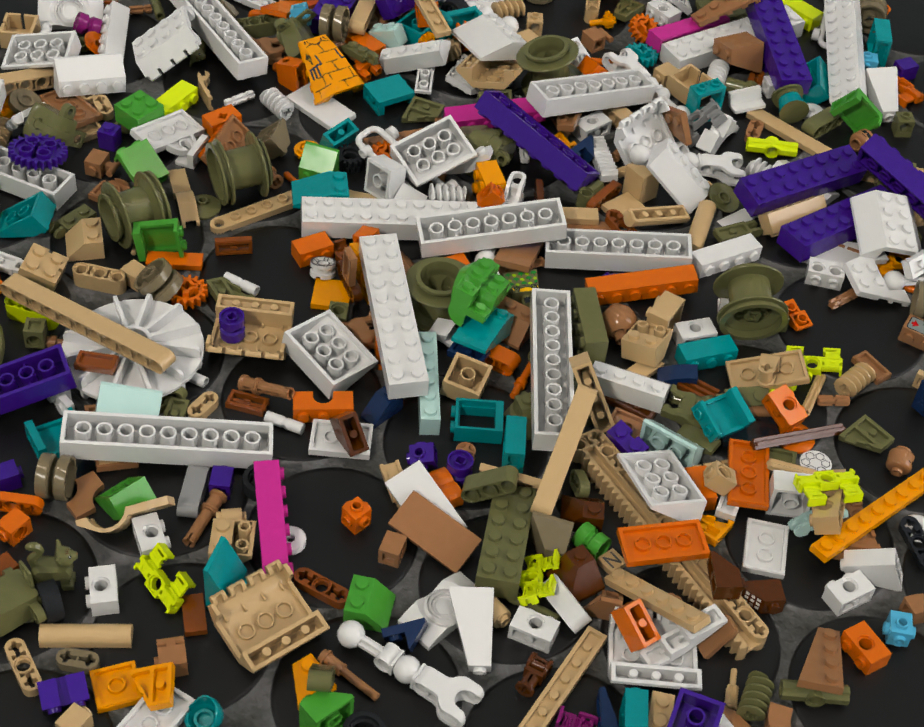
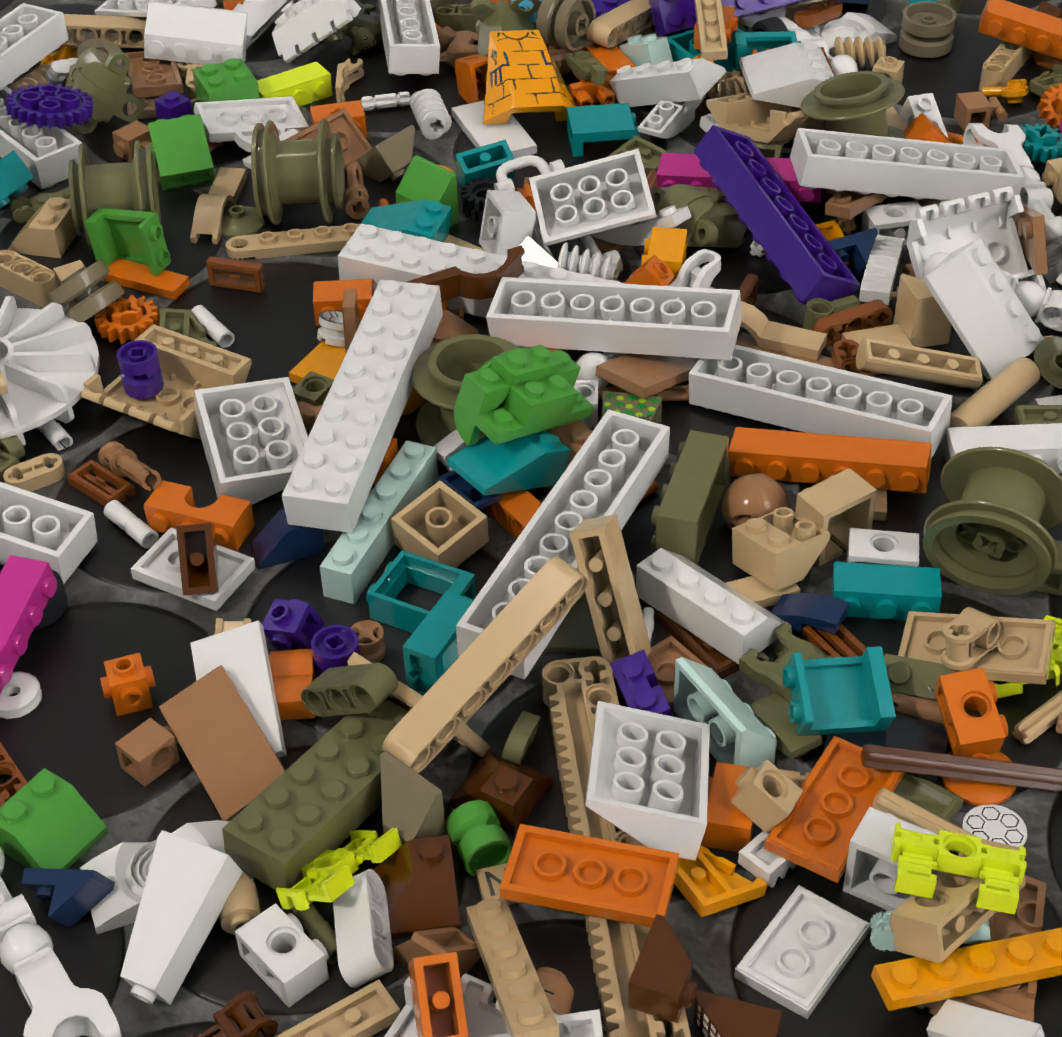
camera: 30 degrees right, 5 degrees down
(397, 225) = (478, 286): none -> reddish brown piece

